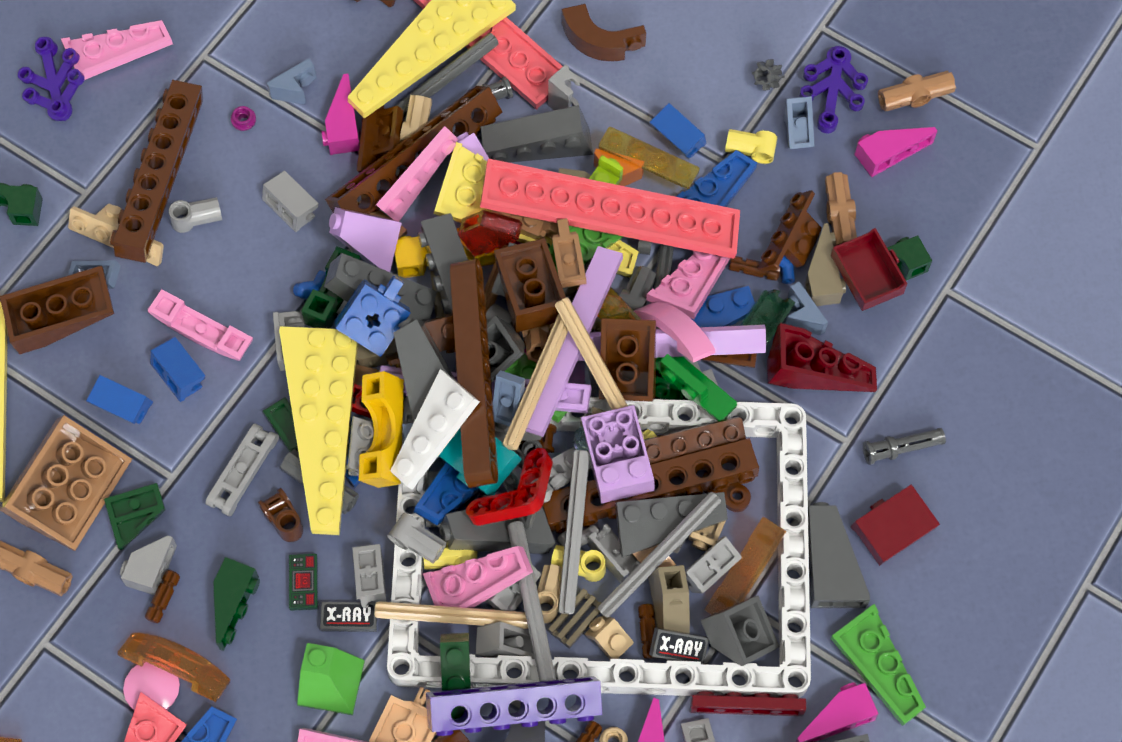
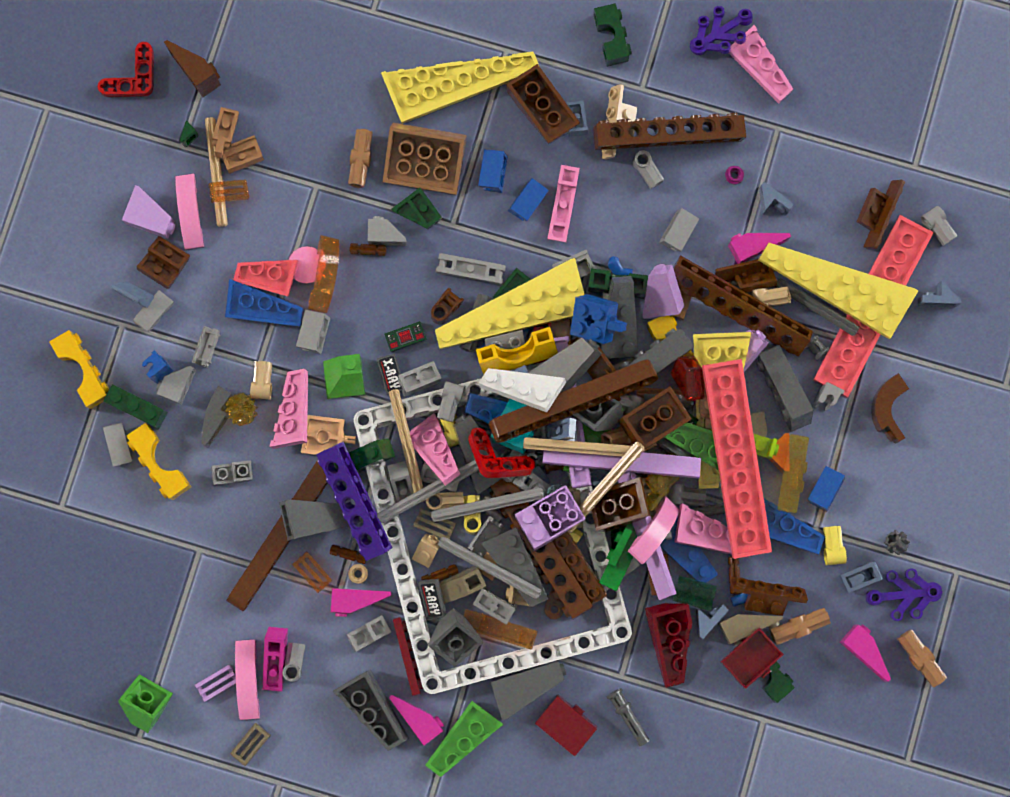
camera: 75 degrees right, 15 degrees up
(231, 592) = (382, 292): dark green slope -> none
(250, 703) = (313, 331): none -> light grey hinge
(414, 179) = (719, 313): bright pink wing -> none
(568, 256) = (685, 439): medium nougat hinge -> none

